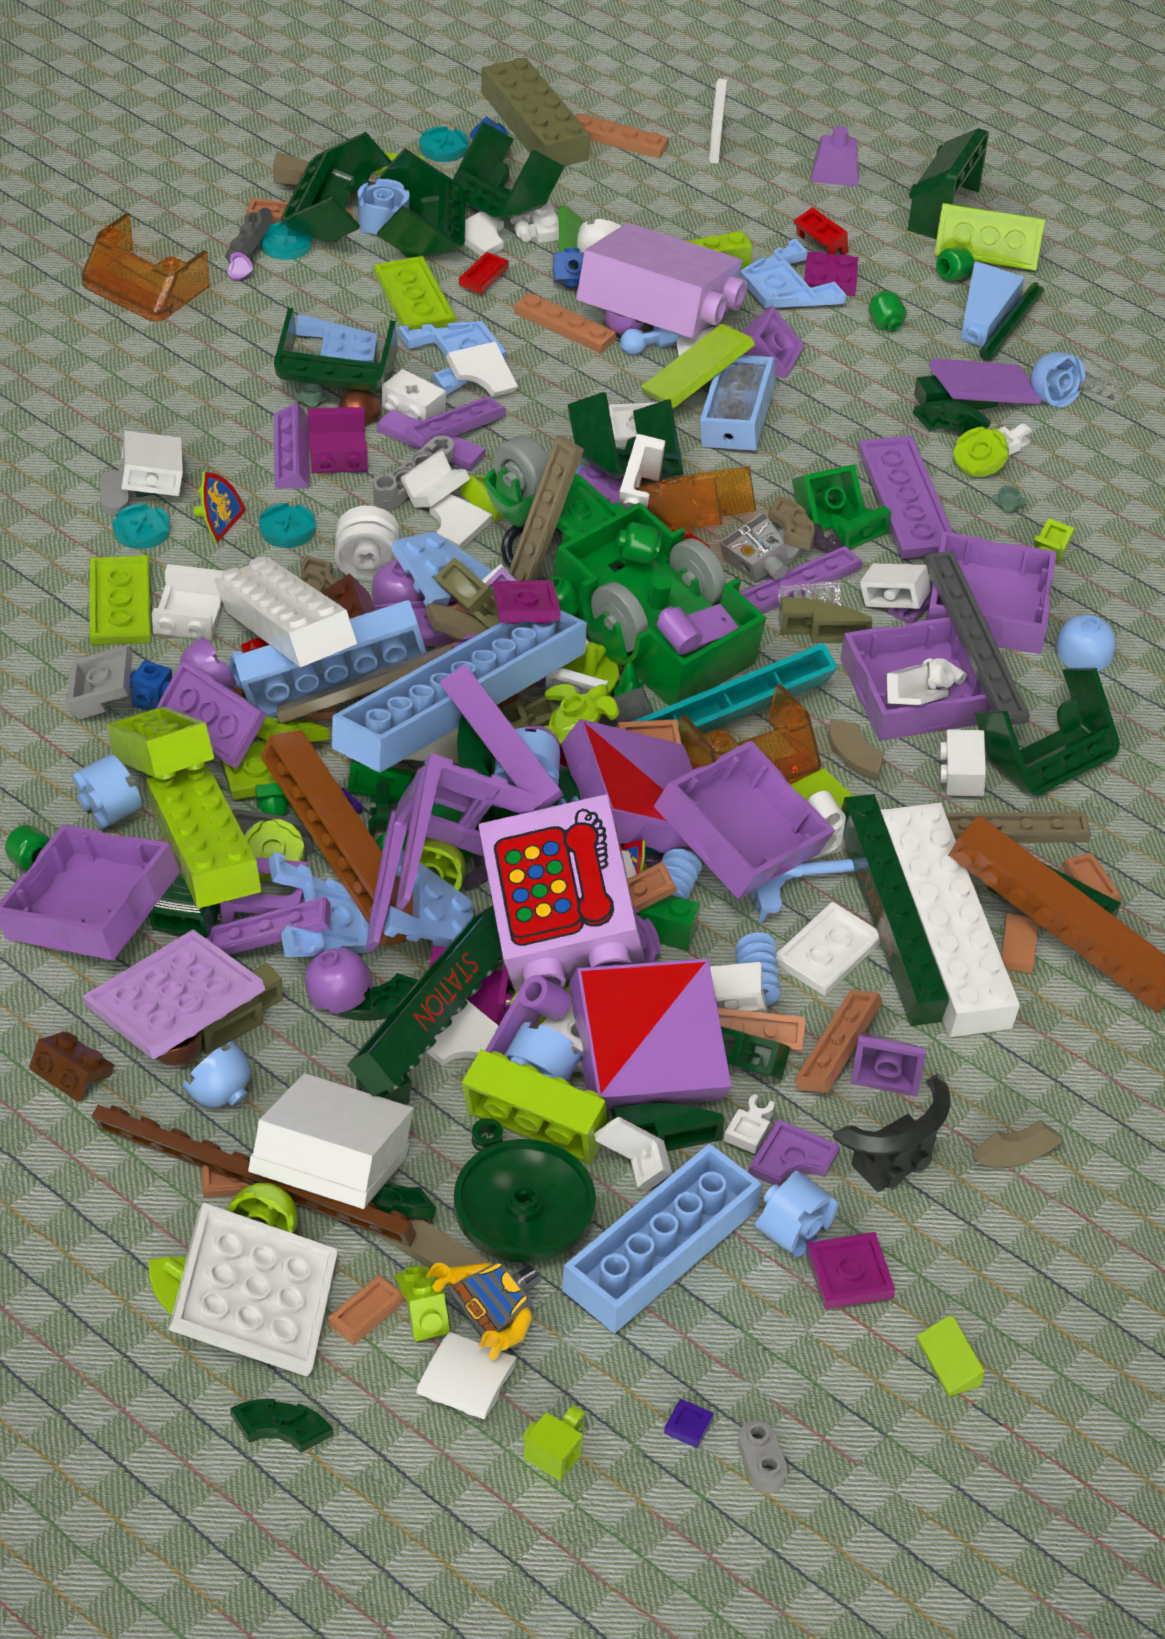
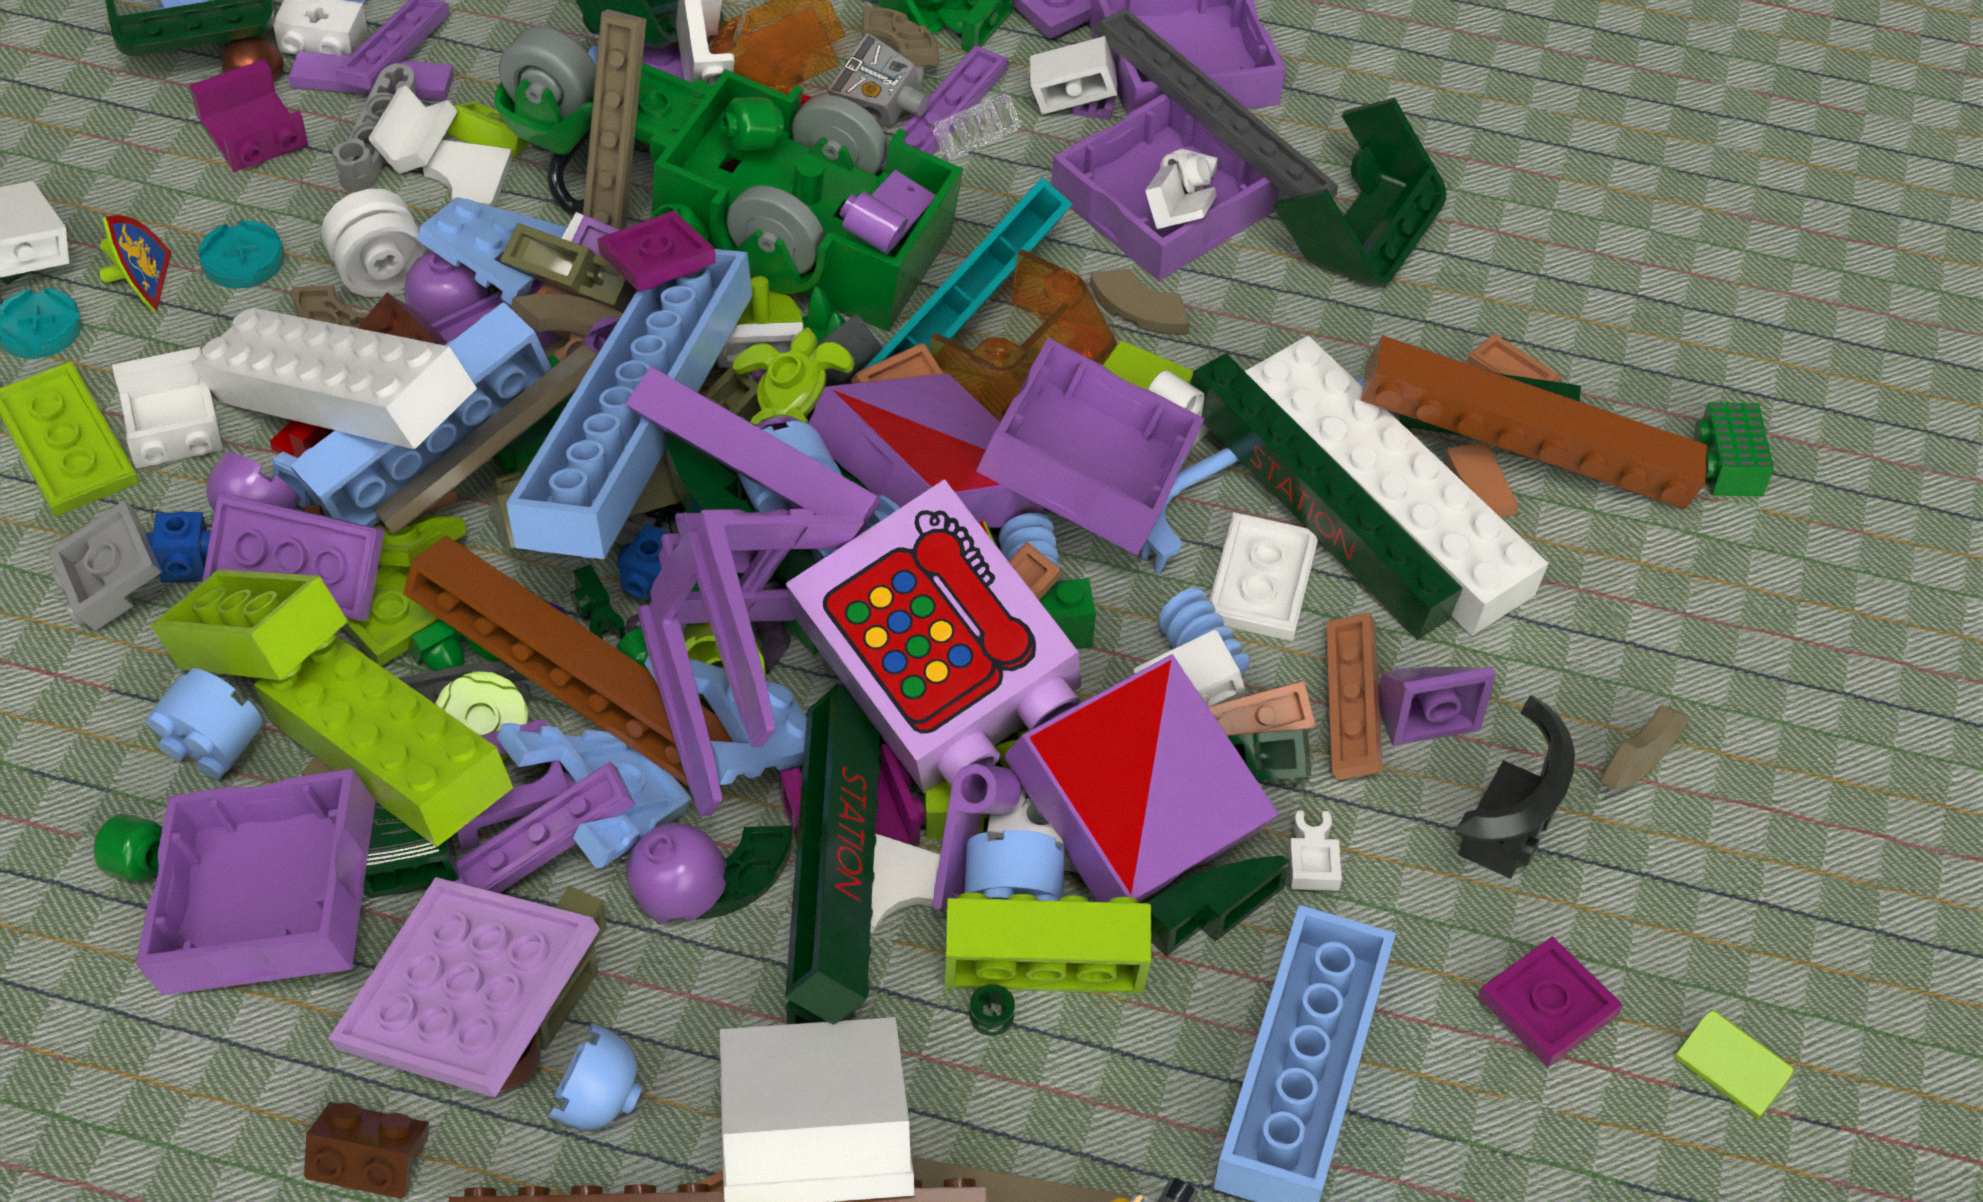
camera: 25 degrees left, 5 degrees up
(291, 448) = (187, 147): medium lavender slope -> none
(311, 395) = (177, 66): sand green plate -> none
(364, 780) = (555, 572): green tile -> none
(403, 1199) = (948, 1154): dark green tile -> none
(524, 1200) = (1102, 1085): dark green dish -> none
(644, 1149) = (1214, 952): white bracket -> none
(792, 1150) = (1382, 869): medium lavender tile -> none
(796, 1213) = (1452, 954): light blue brick -> none
(820, 619) = (1007, 149): olive slope -> none
(825, 544) = (952, 51): clear purple arm -> none
(964, 764) = (1287, 273): white brick -> none
(1029, 826) = (1409, 323): dark tan tile -> none
(1086, 643) = (1329, 72): light blue cylinder -> none

